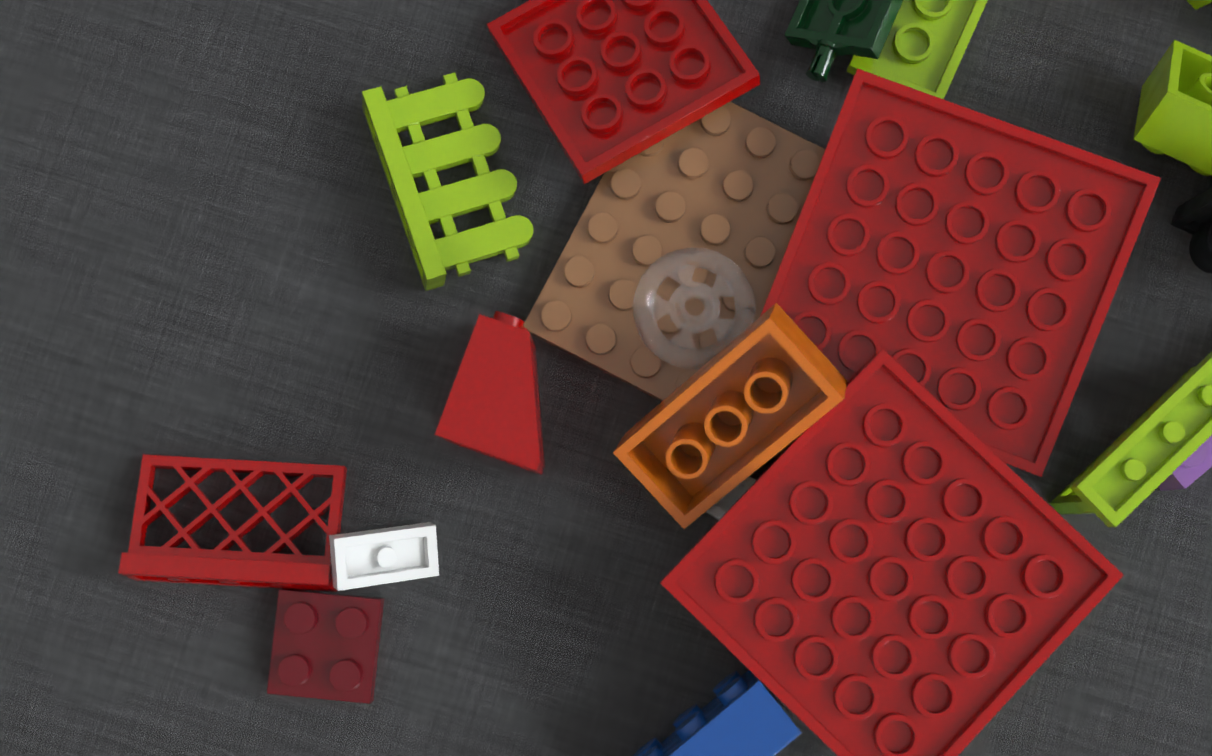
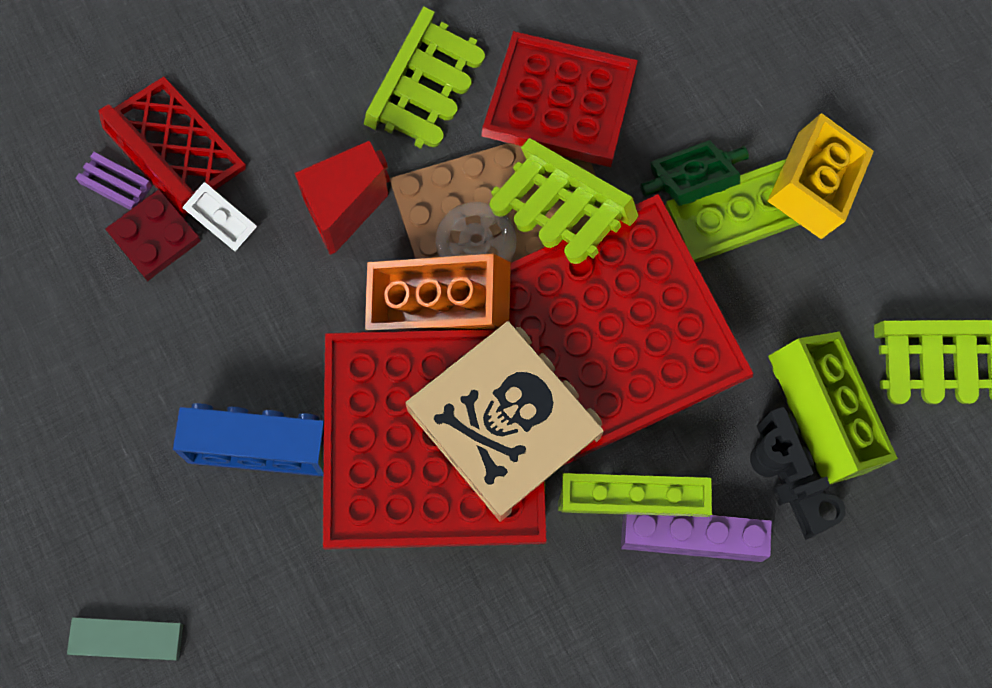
camera: 40 degrees right, 10 degrees down
(175, 641) = (91, 169): none -> medium lavender tile
(780, 141) = (562, 176): none -> lime fence
(966, 489) = (504, 418): none -> tan panel

